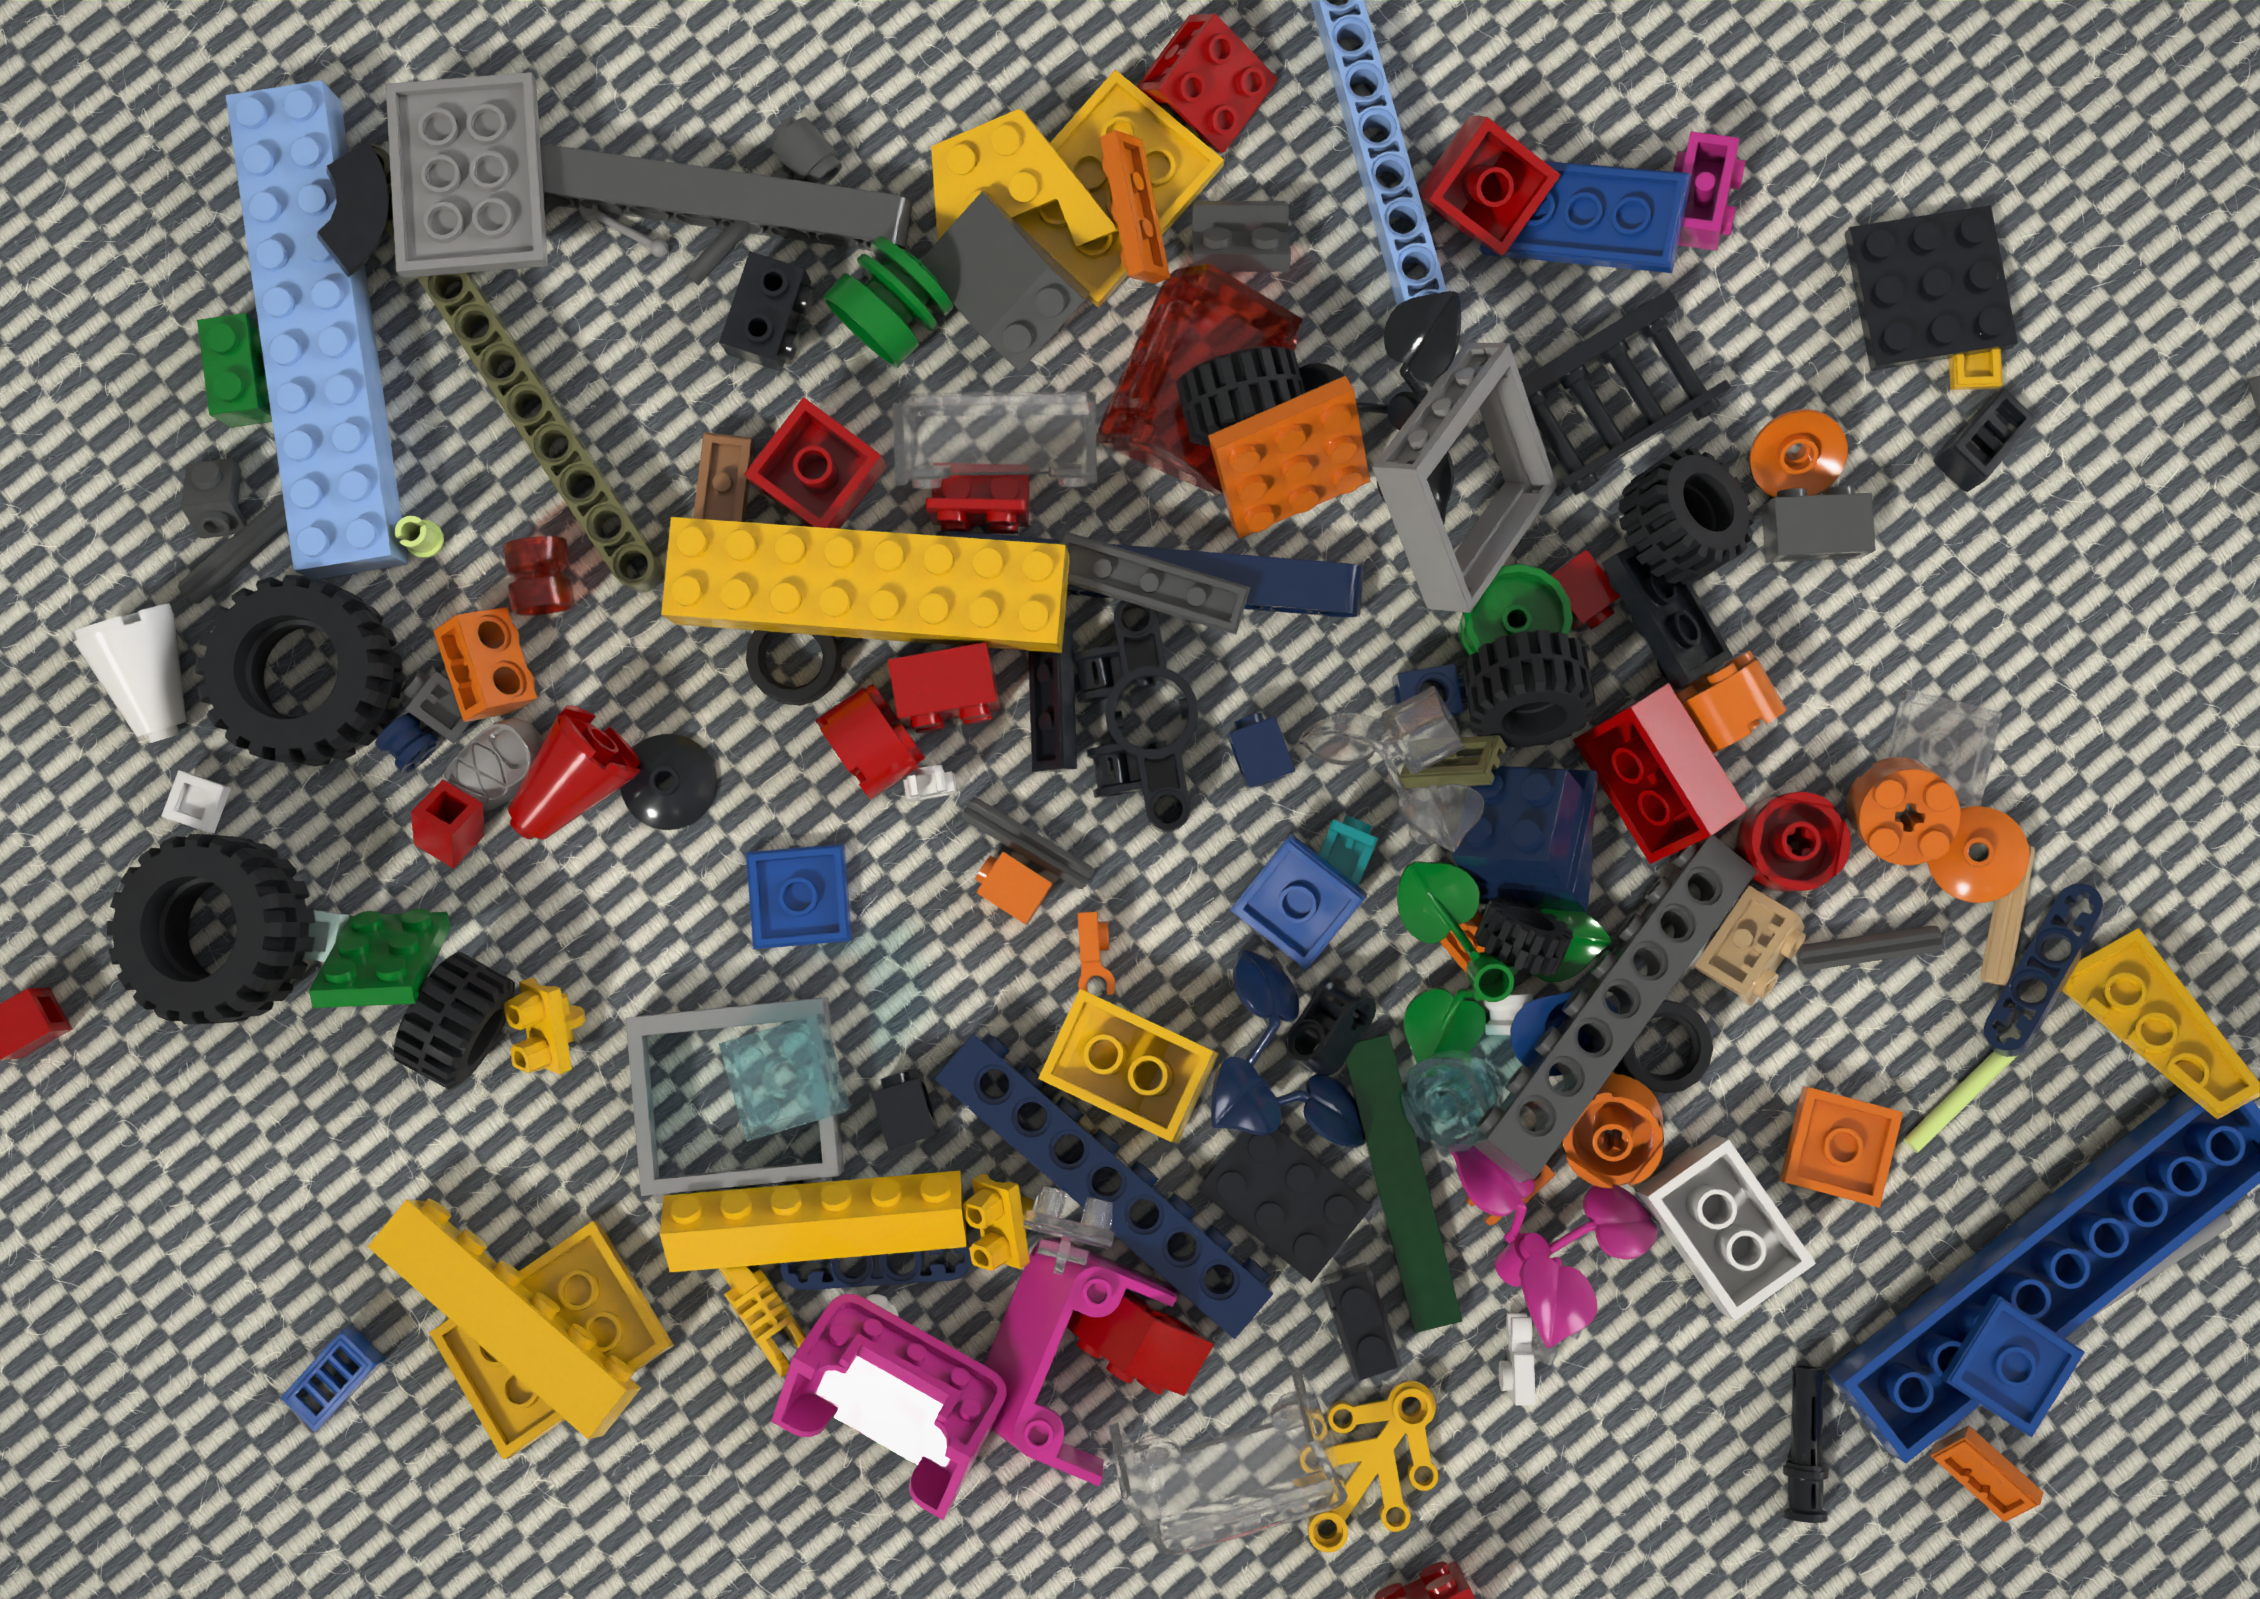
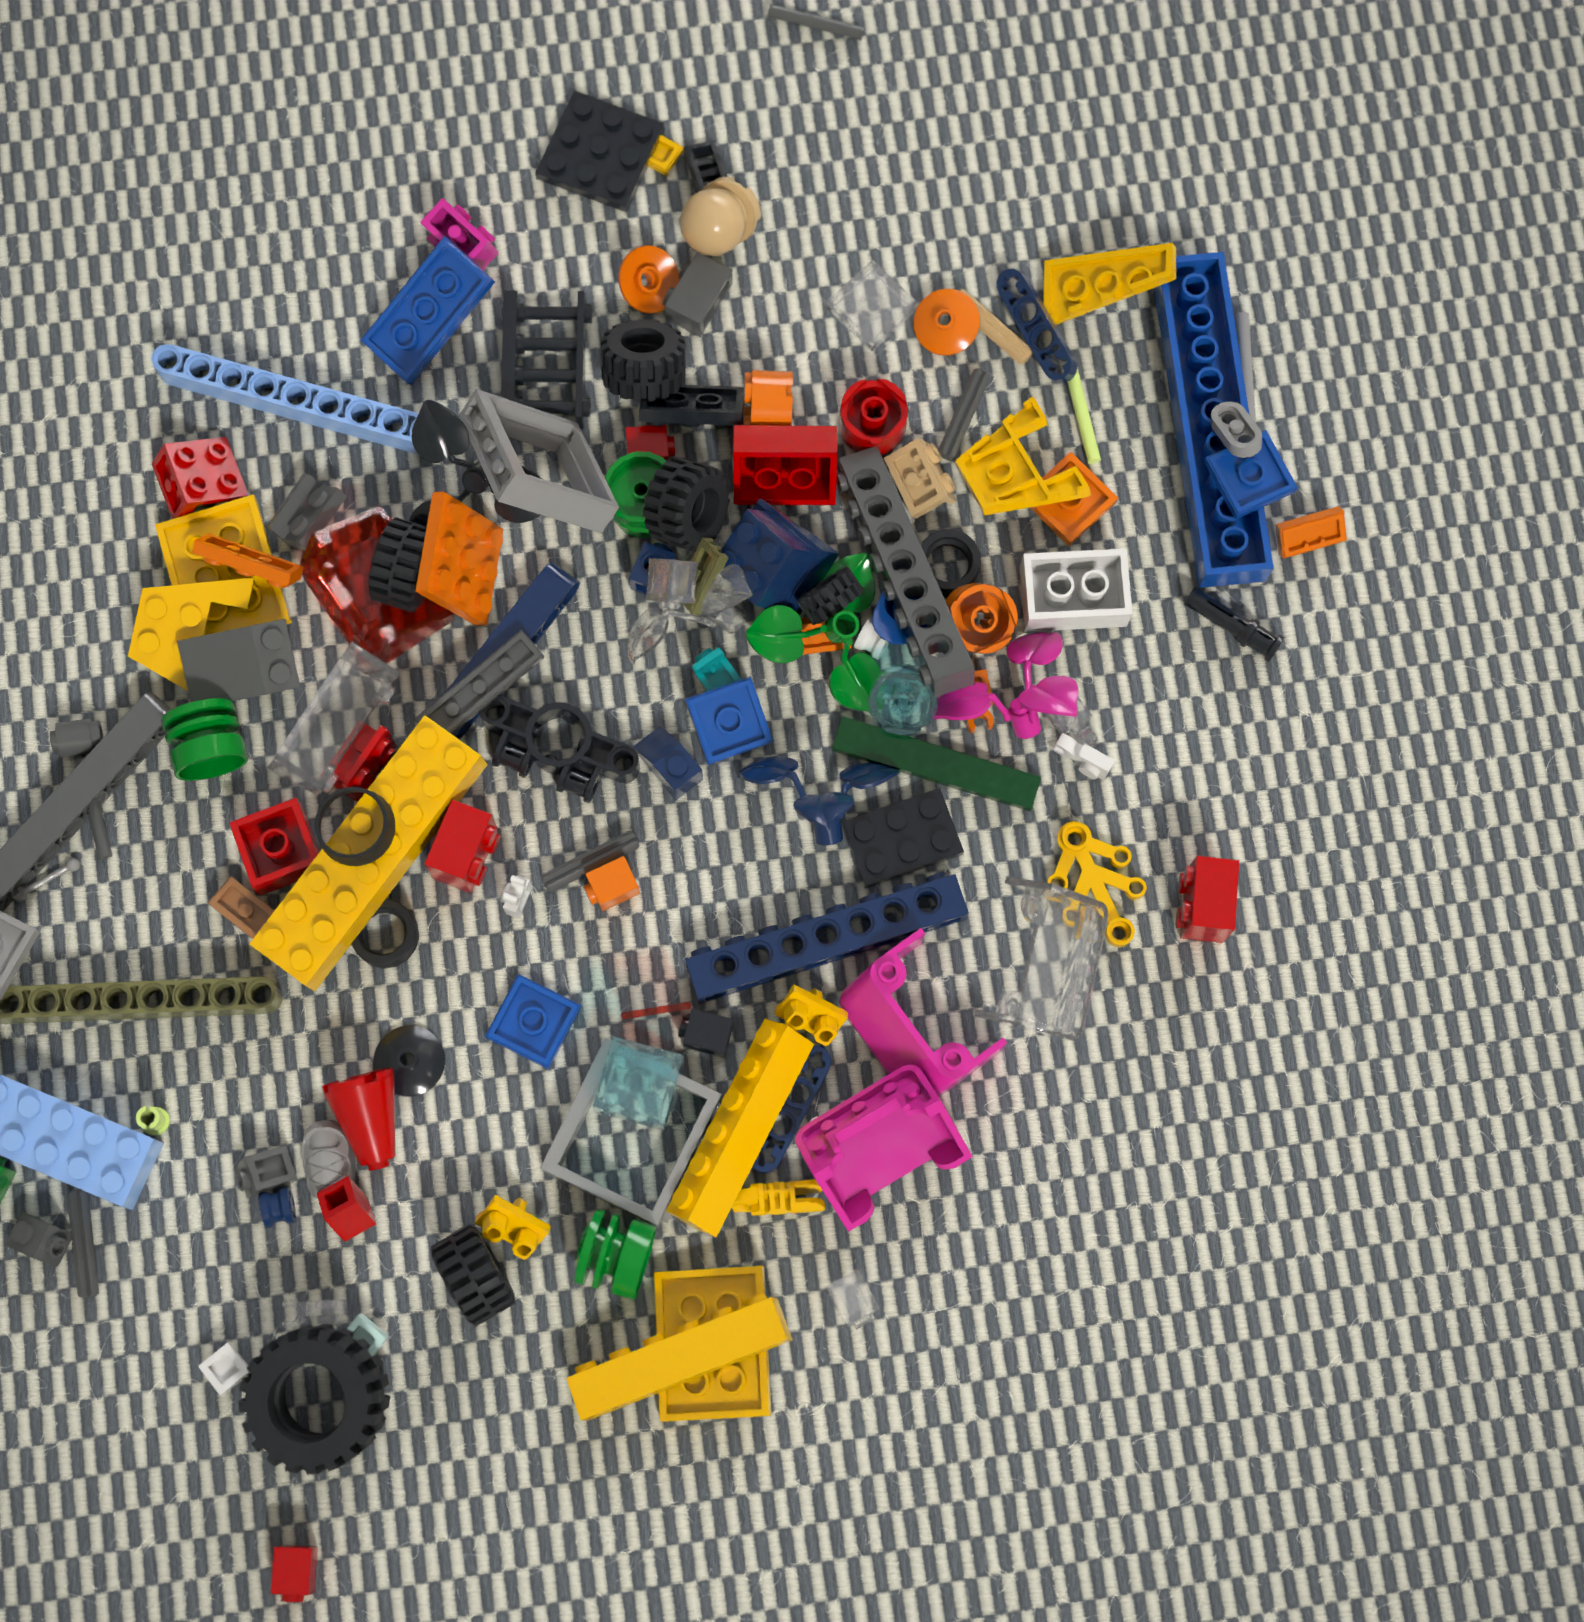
camera: 60 degrees left, 10 degrees down
(138, 668) = (116, 1350): white cone -> none
(238, 659) = (141, 1231): black tyre -> none
(324, 870) = (325, 1310): none -> clear plate
(360, 1351) = (644, 1474): blue slope -> none
(380, 959) = (403, 1296): green plate -> none
(477, 666) = (261, 1124): orange brick -> none
(541, 592) = (225, 1057): clear red wheel -> none
(578, 1168) = (614, 1254): none -> green wheel
(697, 1472) = (853, 1300): none -> clear brick
(767, 312) = (159, 819): black brick -> none
(867, 742) = (466, 913): red brick -> none
(891, 1036) = (656, 1010): none -> clear red piece
(908, 585) = (376, 850): none -> black tyre
(1047, 1219) = (843, 971): clear hips -> none
(1053, 707) = (518, 795): black tile -> none
(1092, 940) = (675, 857): orange plate -> none
(1128, 1066) = (764, 877): yellow slope -> none
(1143, 1345) = (938, 970): red brick -> none
(1204, 859) = (669, 762): none -> dark blue slope
(1260, 750) = (623, 688): dark blue brick -> none
(1330, 1026) = (814, 744): black piece -> none
(1361, 1321) = (1004, 835): black brick -> none
(1487, 184) = (372, 354): red slope -> none
(1819, 1049) = (1004, 475): none -> yellow wing
(1921, 832) = (907, 332): orange brick -> none
(1934, 492) = (719, 217): none -> tan tile
(2060, 1323) = (1236, 429): none -> light grey plate

